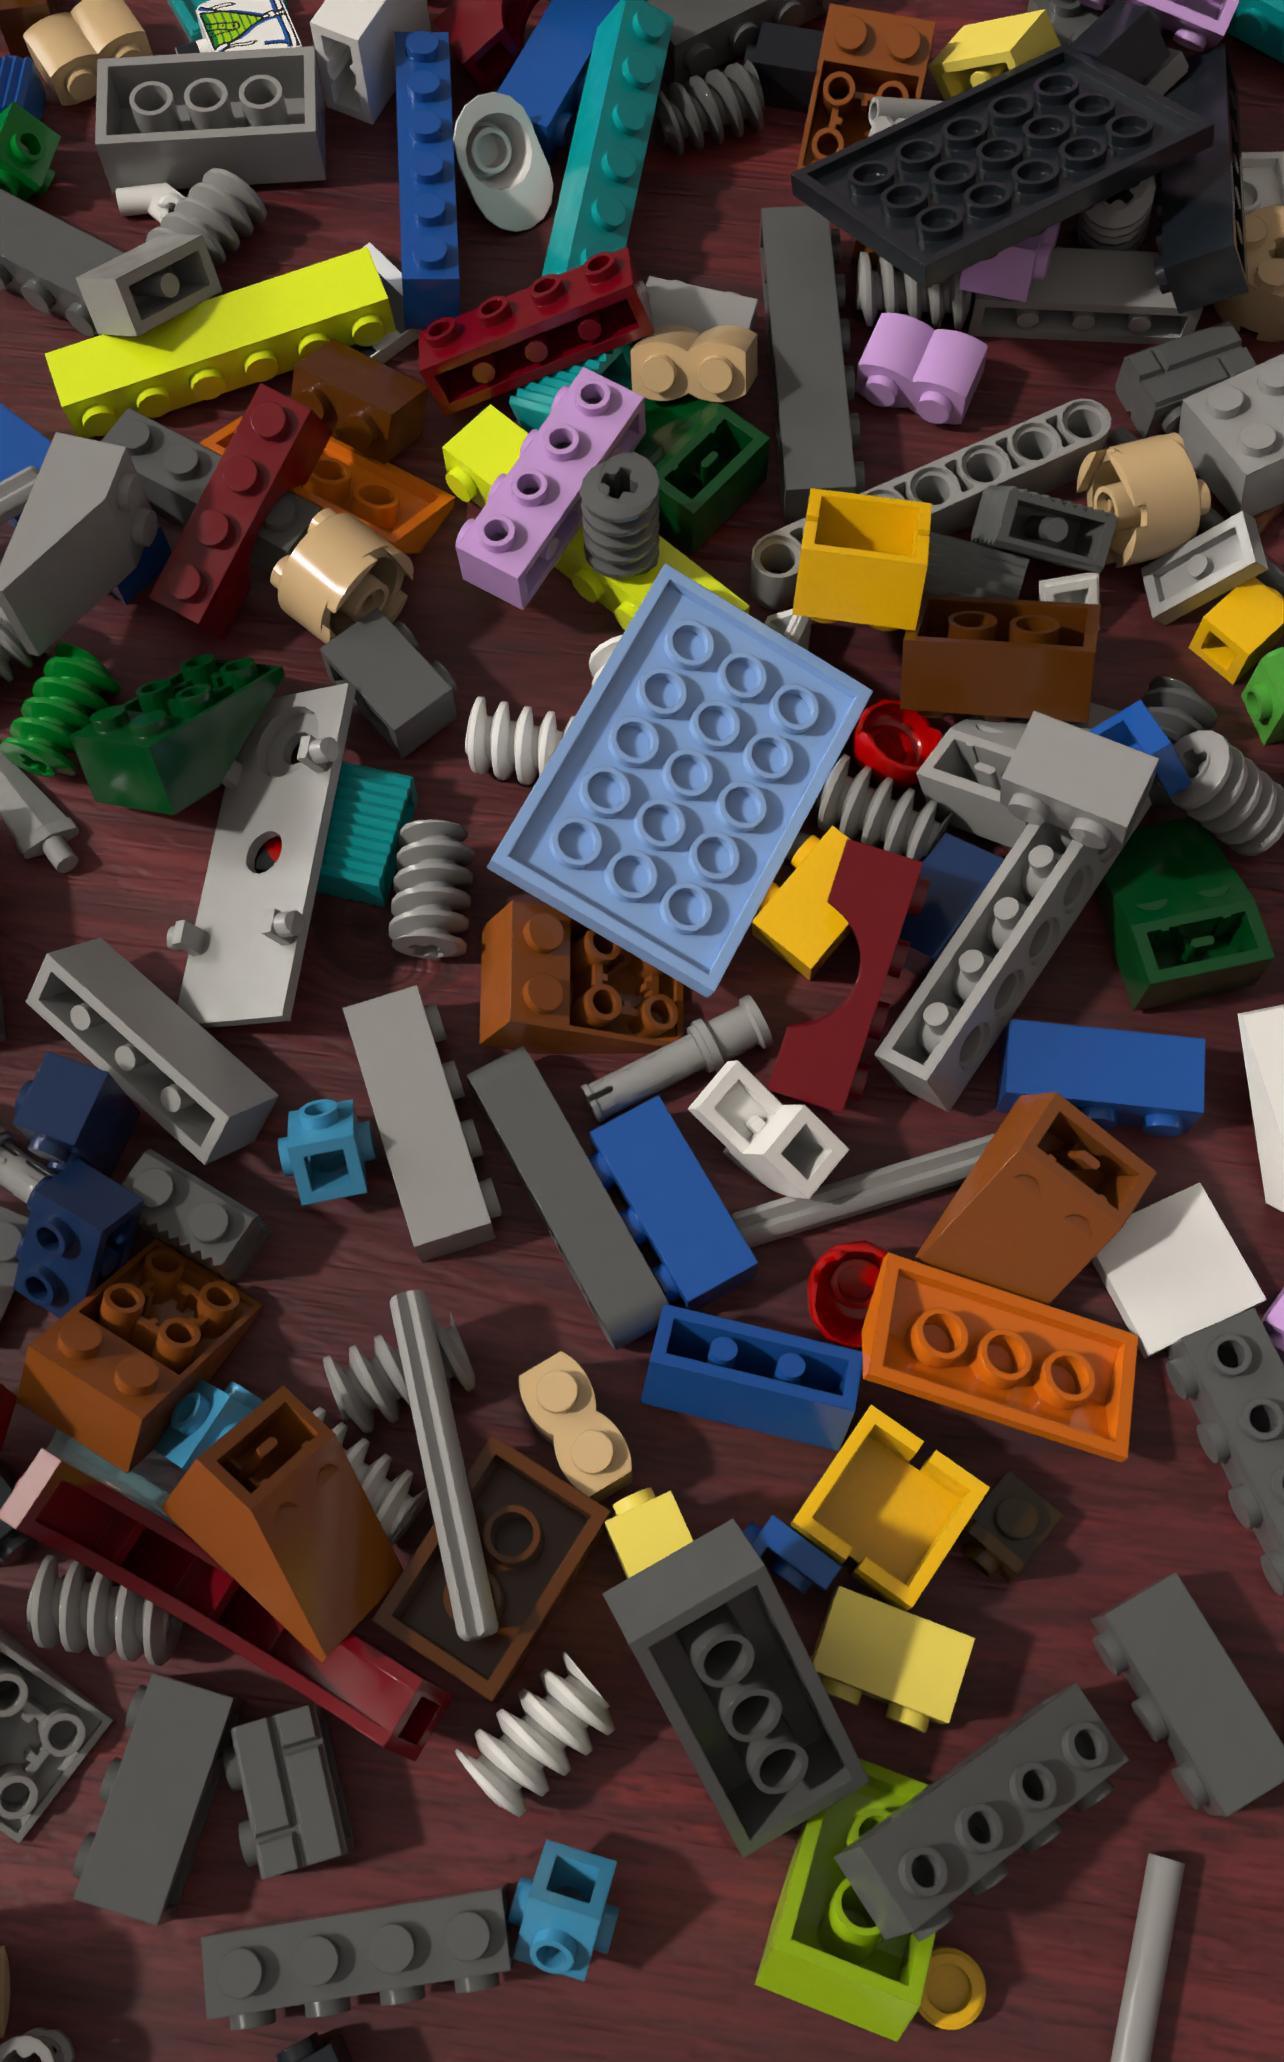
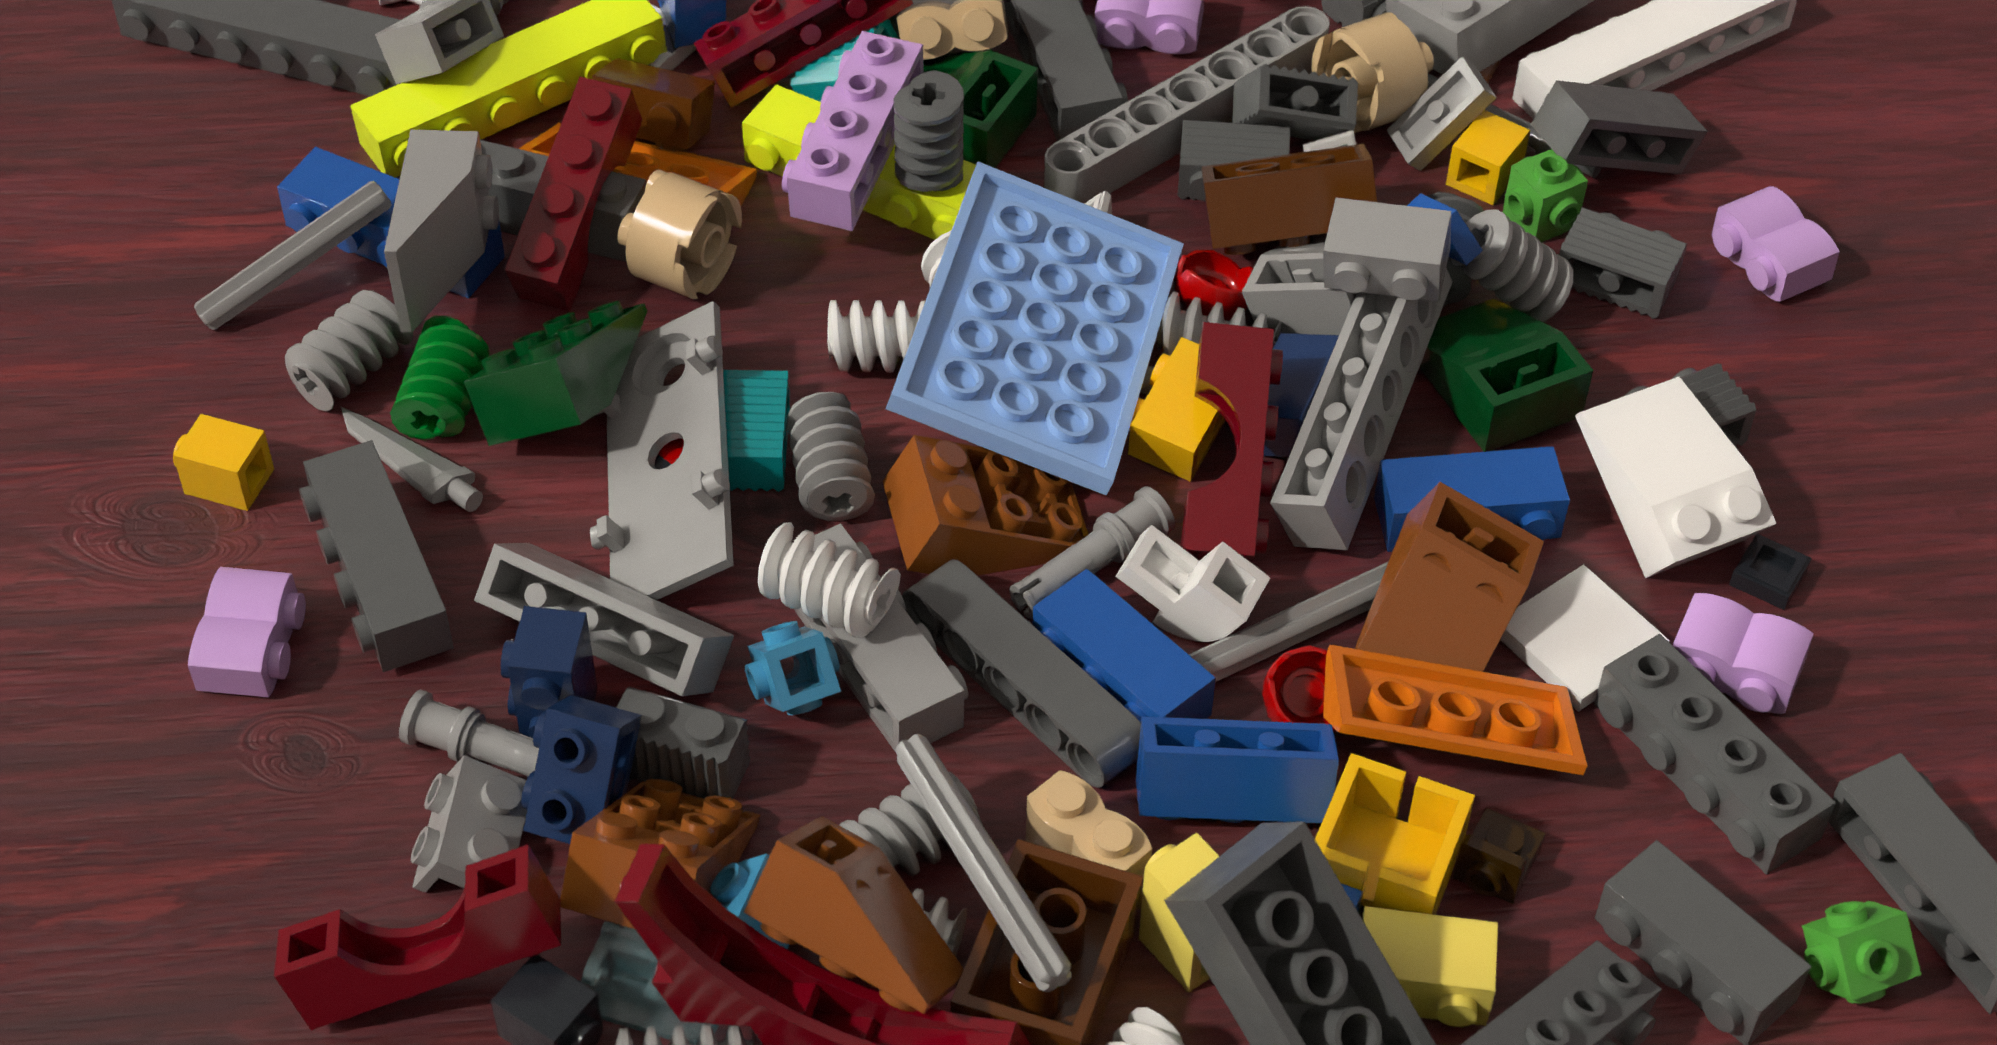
camera: 15 degrees left, 20 degrees down
(367, 1075) = (823, 585): none -> white piece
(393, 682) = (758, 310): dark grey brick -> none
(863, 560) = (1150, 135): yellow piece -> none

